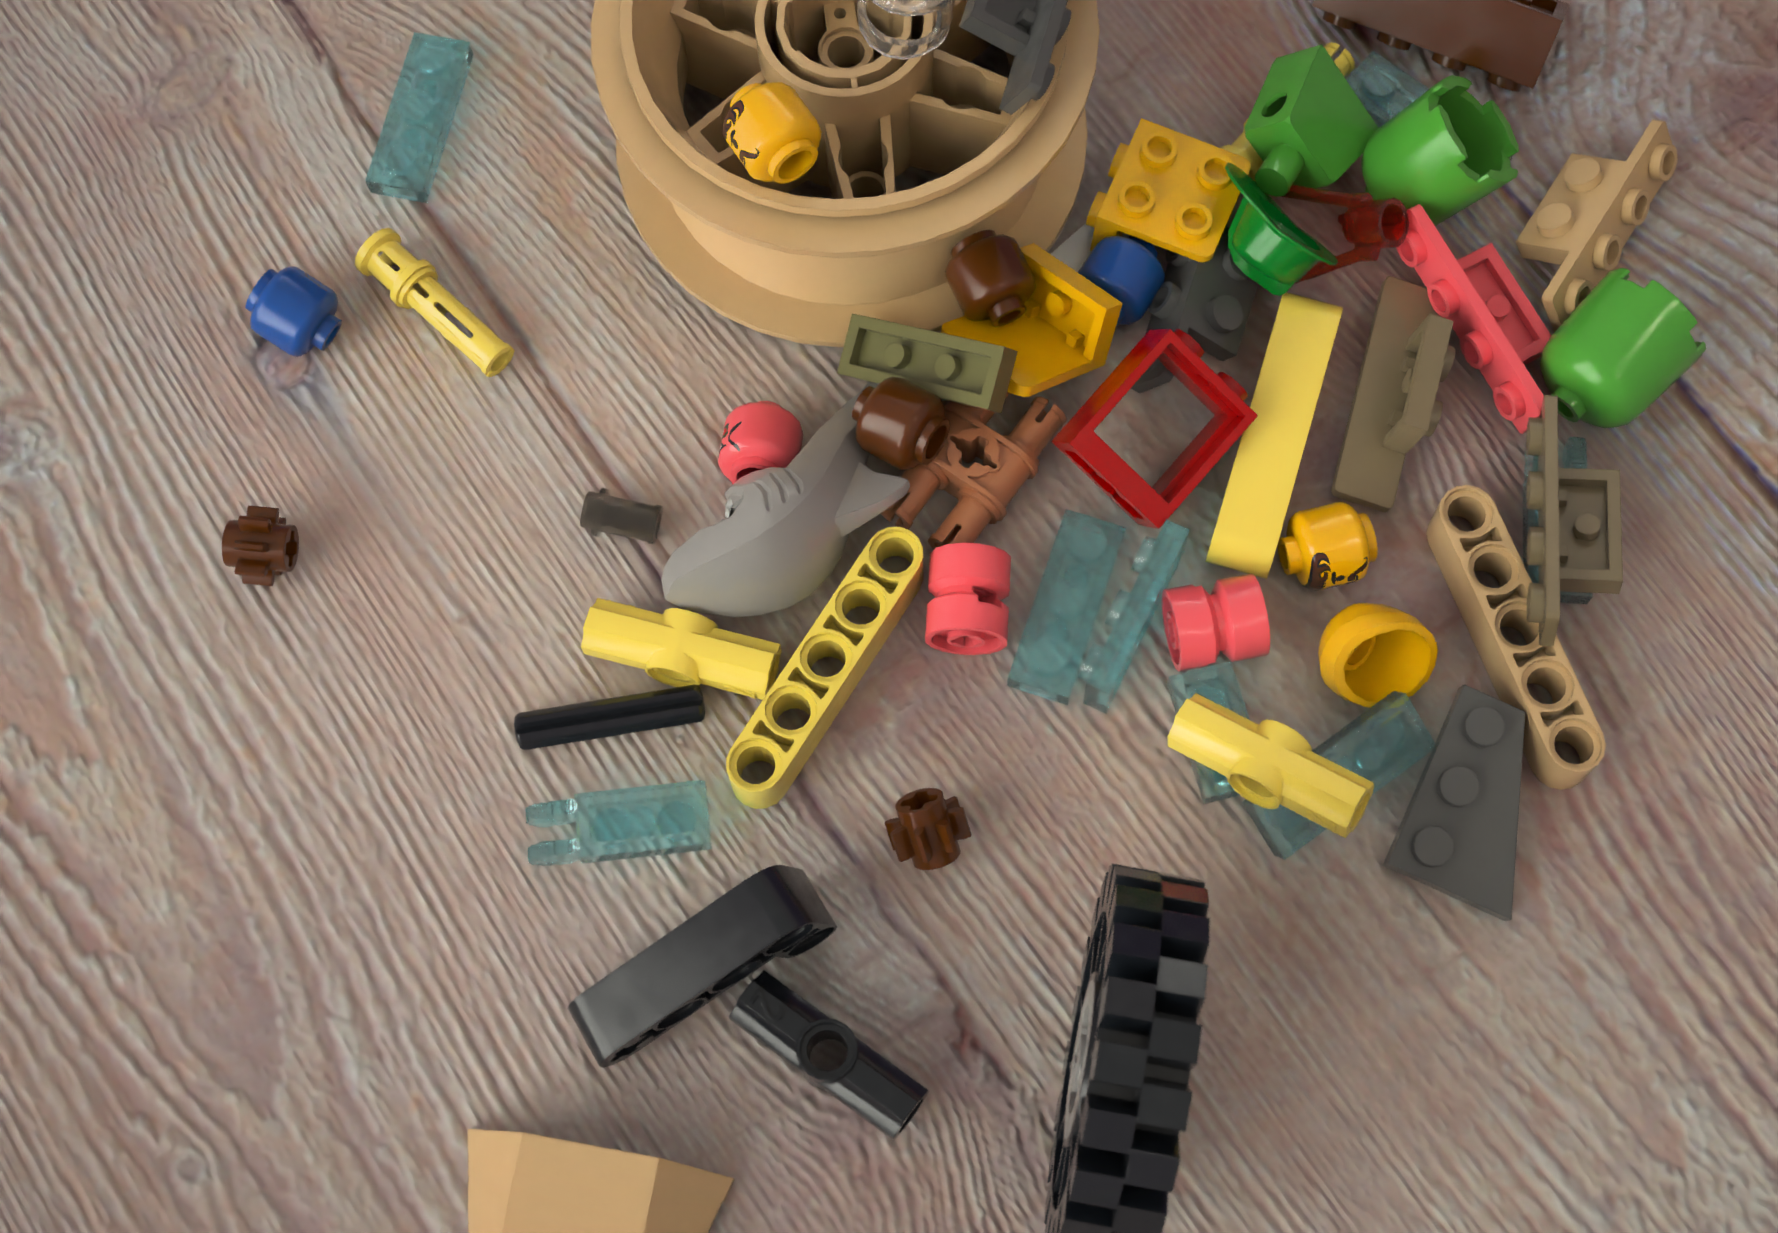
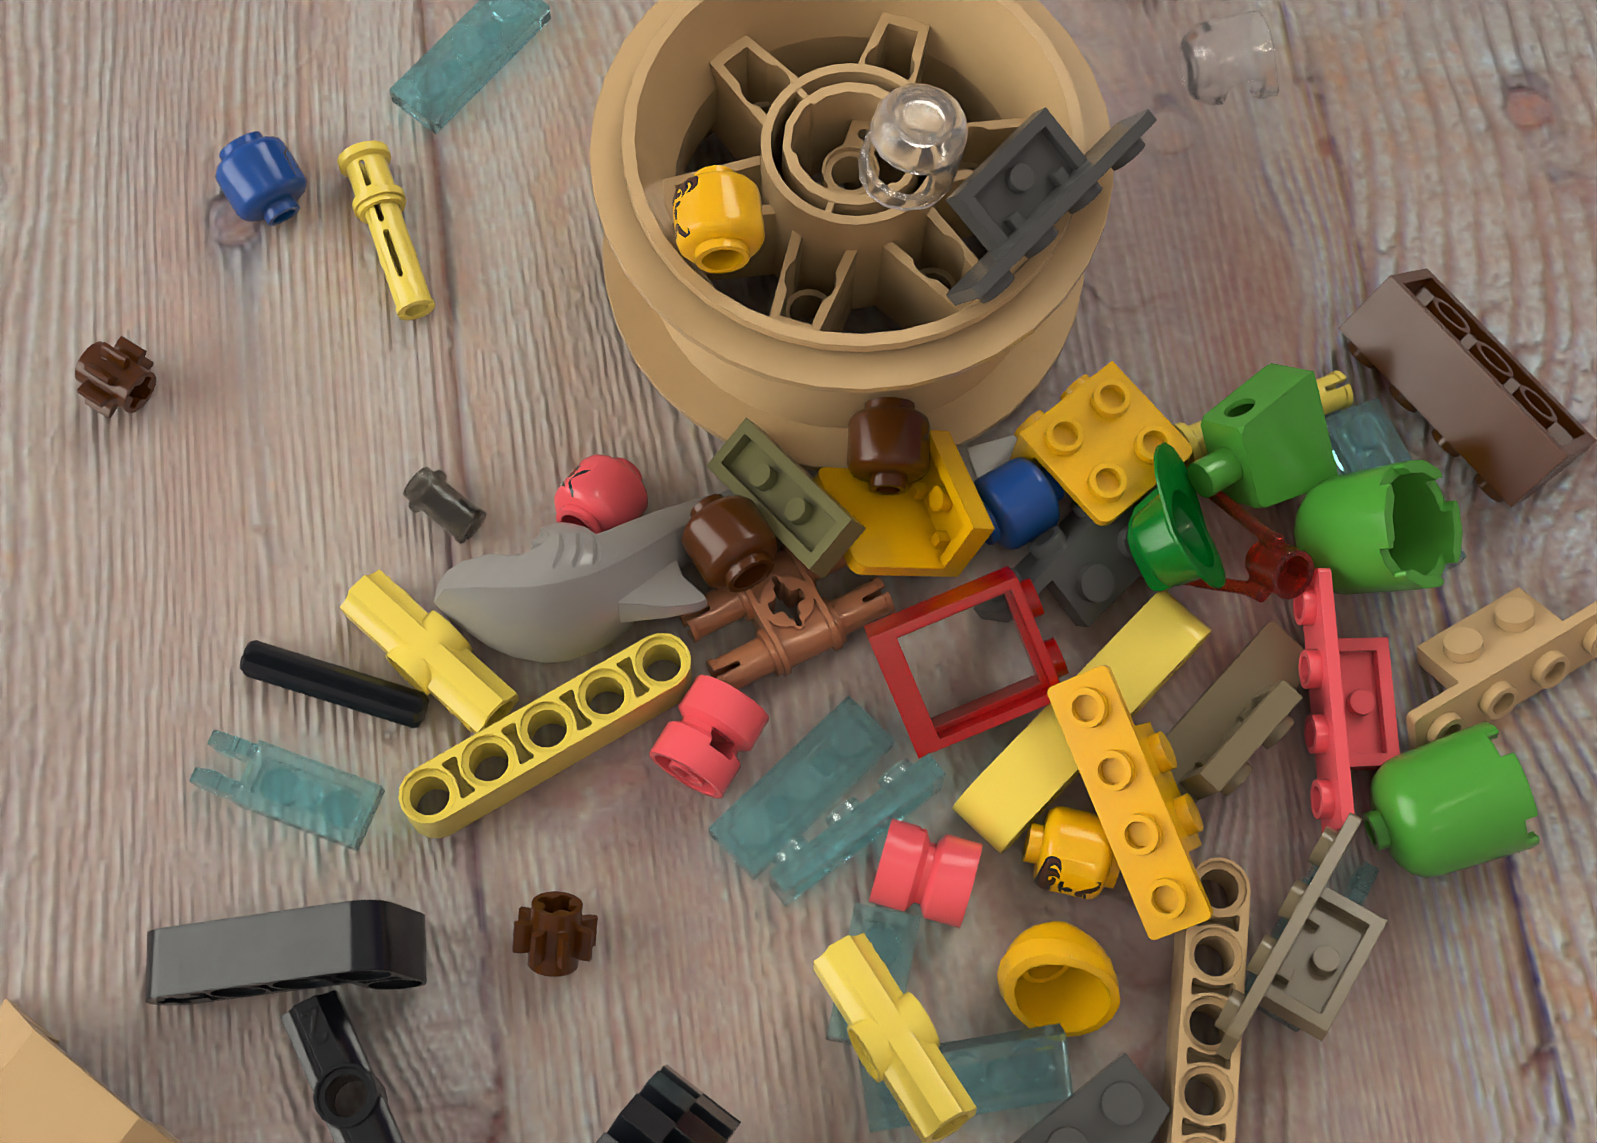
camera: 20 degrees right, 0 degrees up
(1361, 474) = (1135, 800): none -> yellow bracket

